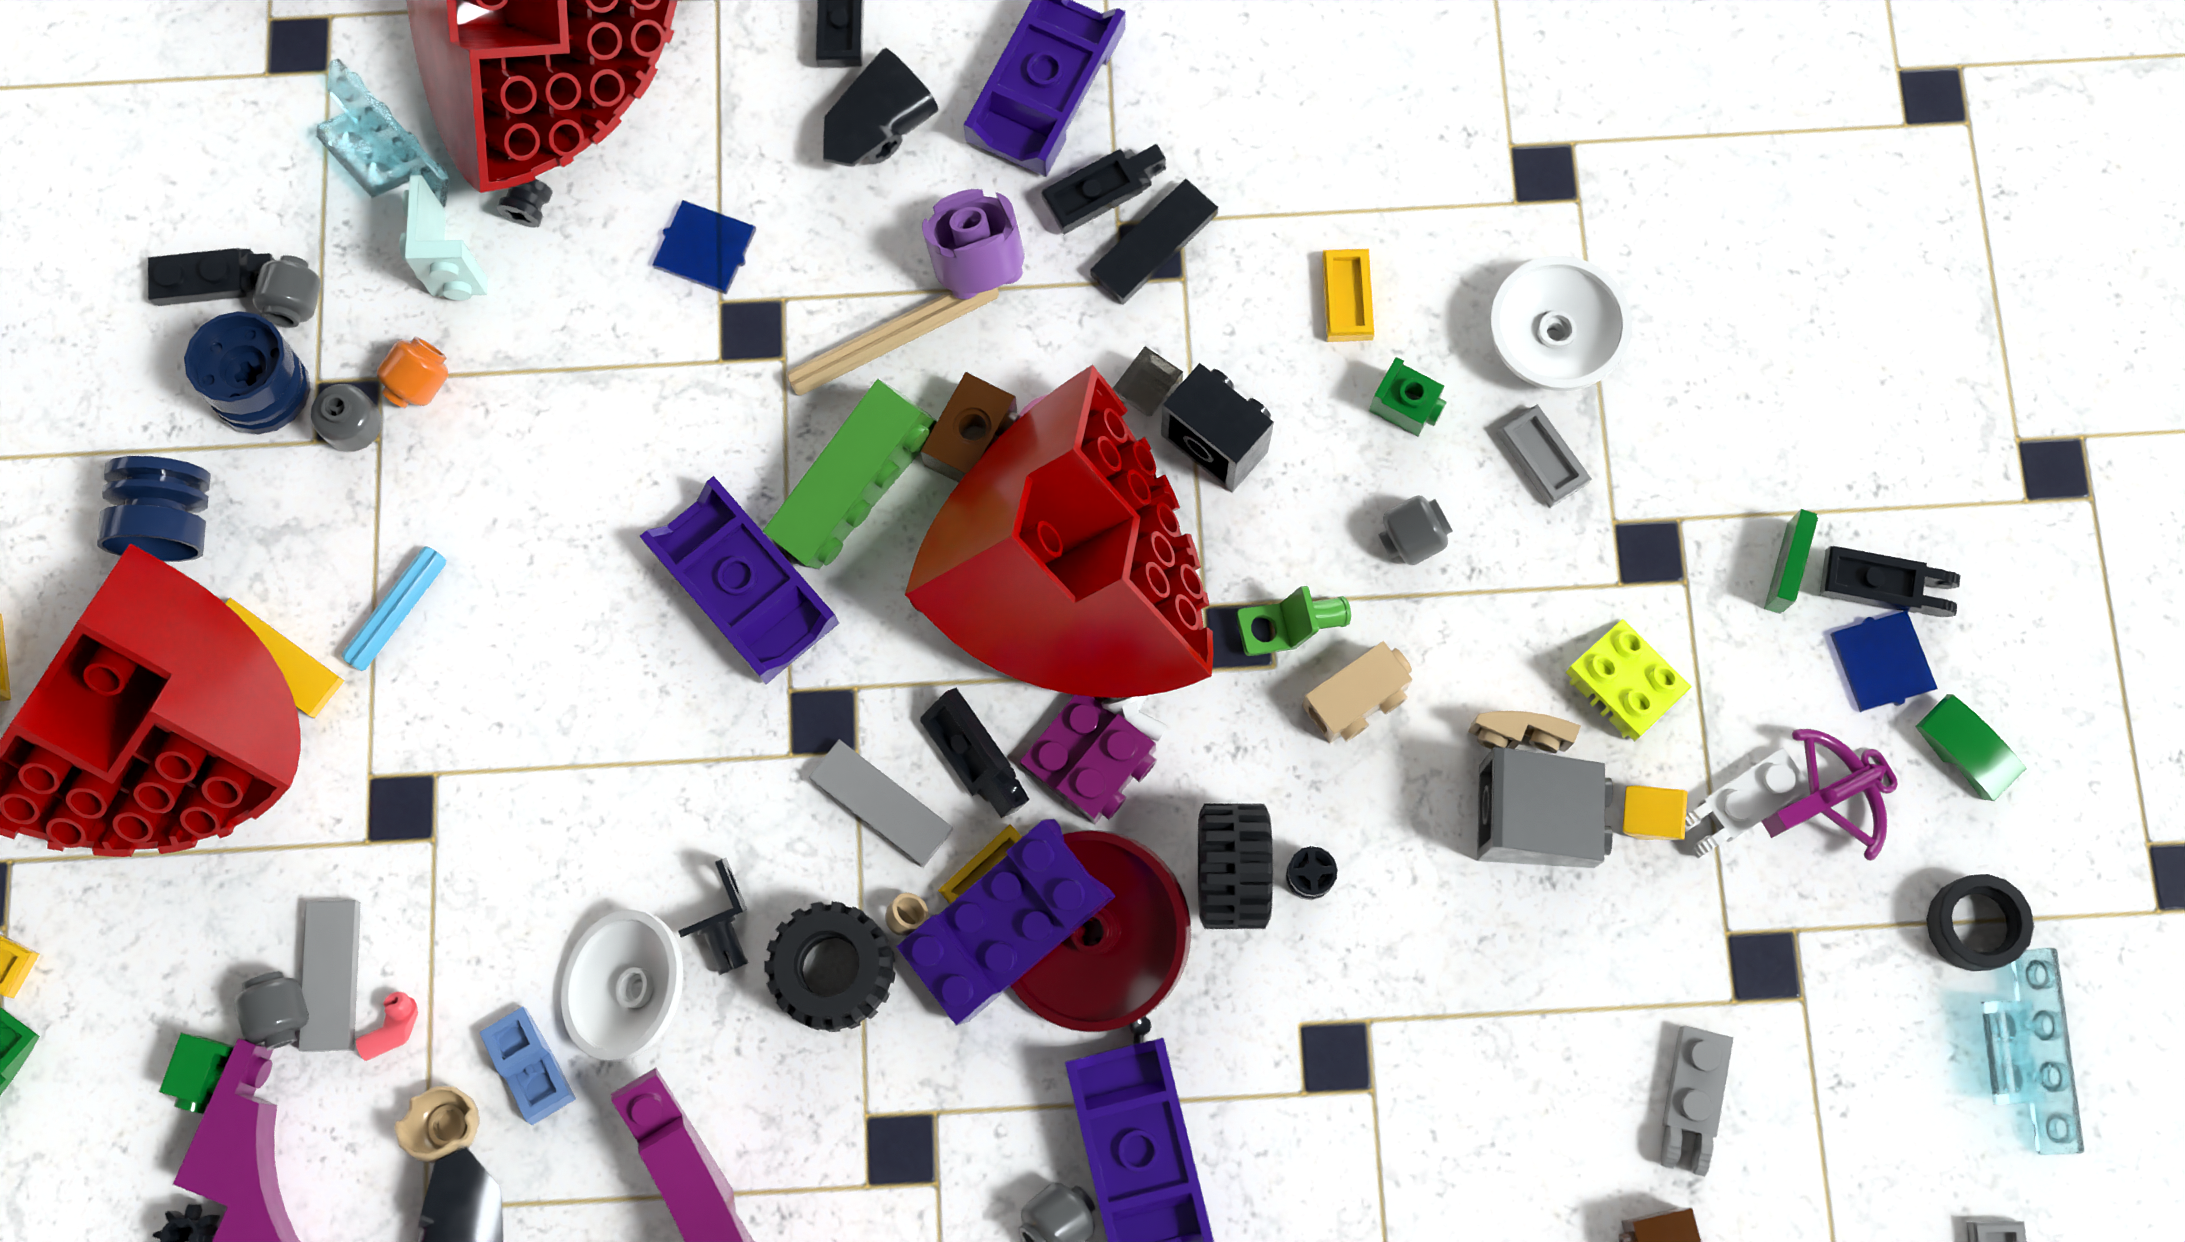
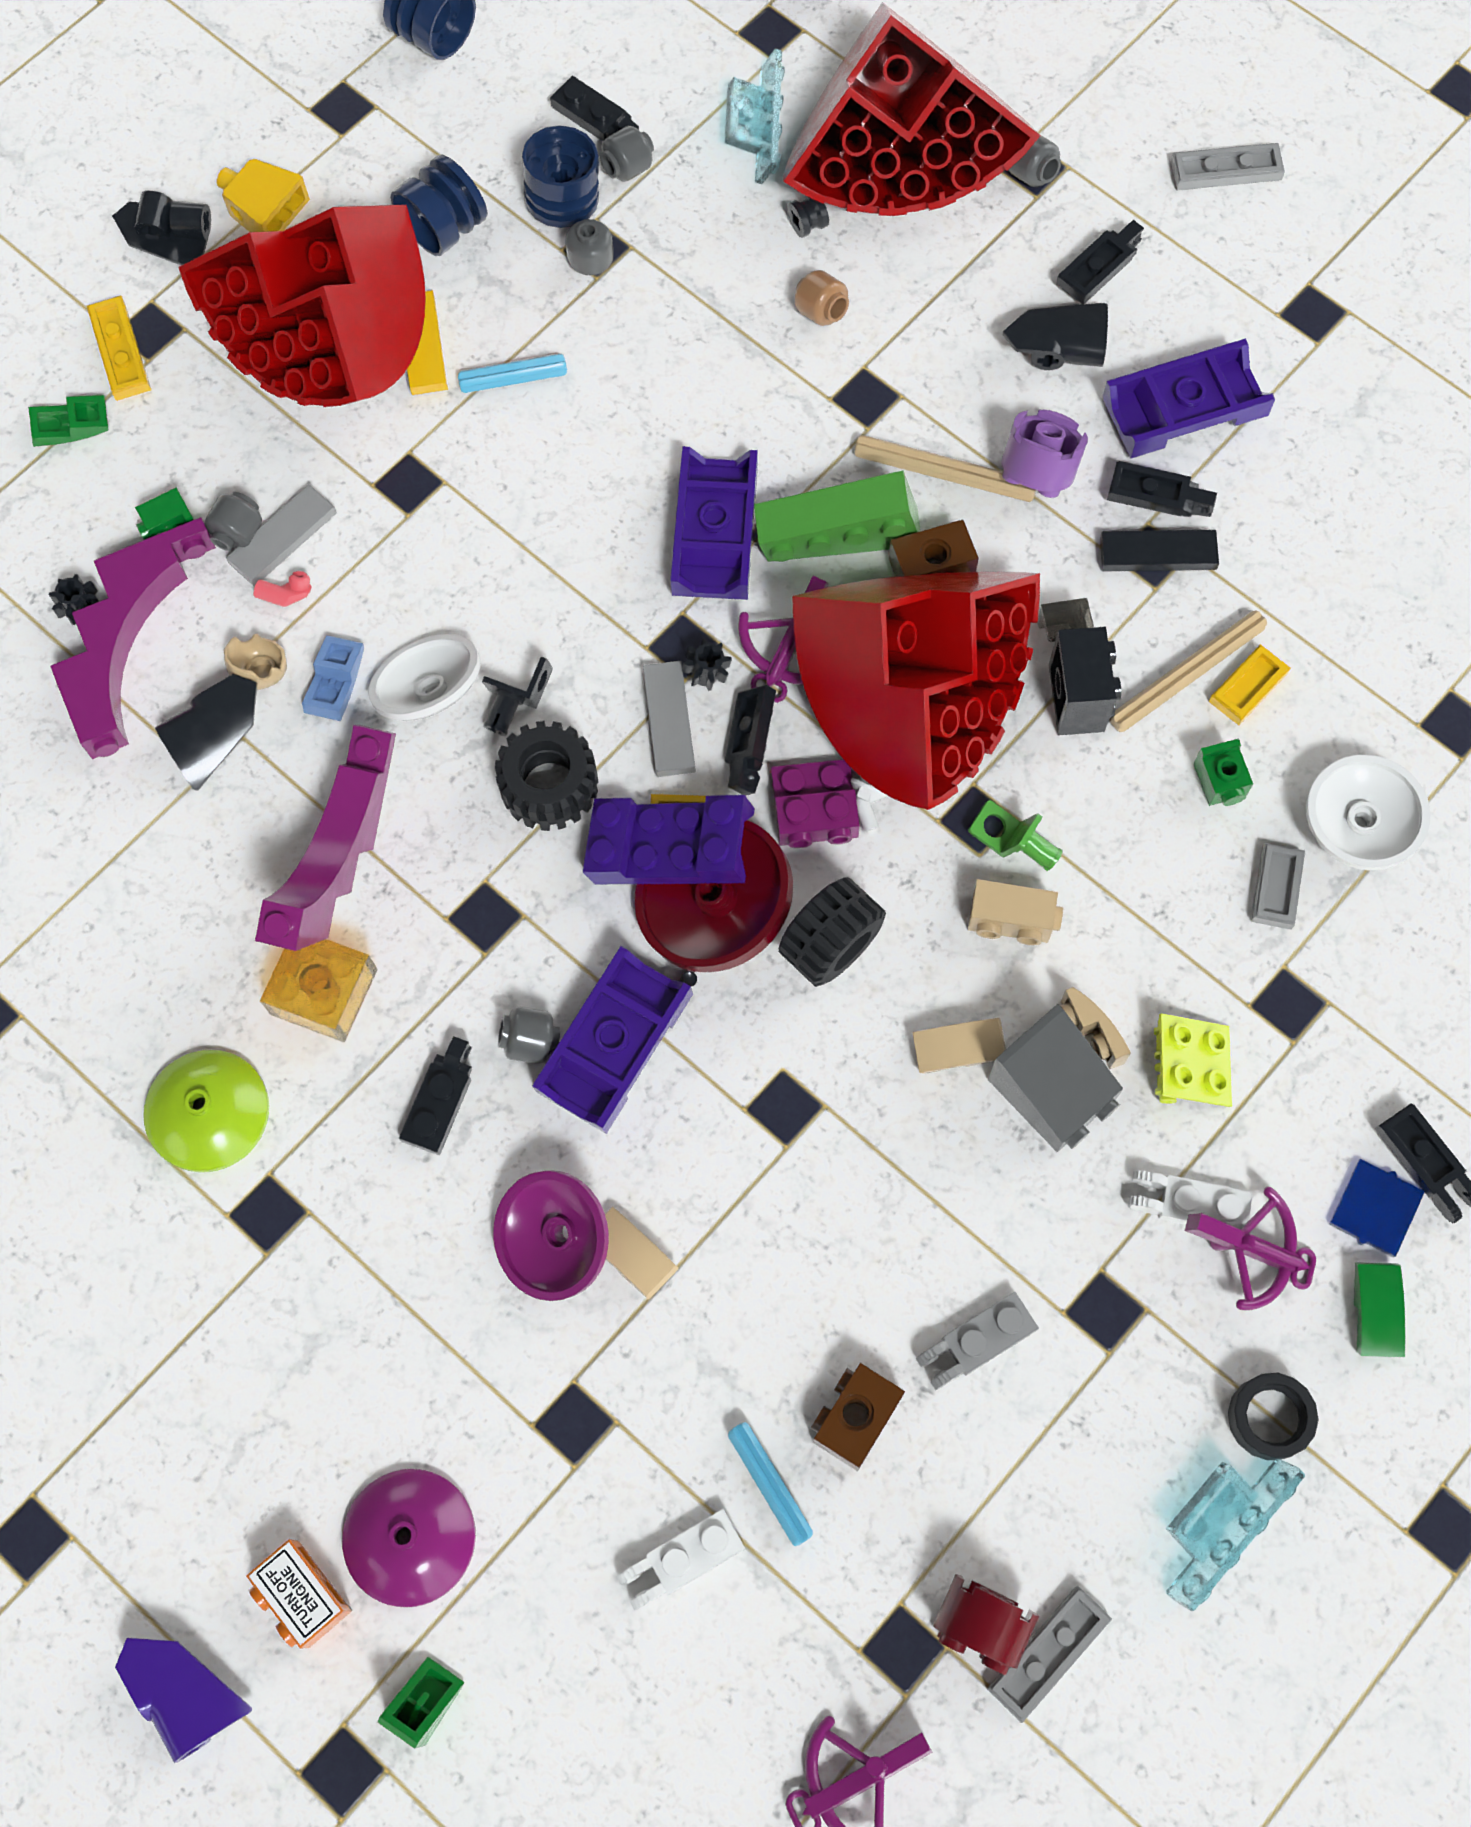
camera: 45 degrees right, 5 degrees down
(412, 372) = (650, 254): orange head -> none
(440, 264) = (727, 191): light aqua bracket -> none
(620, 271) = (821, 298): none -> medium nougat head
(704, 247) = (885, 328): clear blue piece -> none
(872, 733) = (706, 664): none -> black gear
(906, 914) = (623, 787): tan hinge -> none
(934, 665) = (777, 669): none -> magenta piece
(1287, 326) = (1188, 671): none -> tan axle
(1319, 863) = (882, 980): black wheel -> none
(1415, 530) = (1147, 852): dark grey head -> none
(1431, 856) = (959, 1045): none -> tan slope
(1654, 813) = (1126, 1151): yellow slope -> none
(1791, 561) = (1375, 1089): green tile -> none

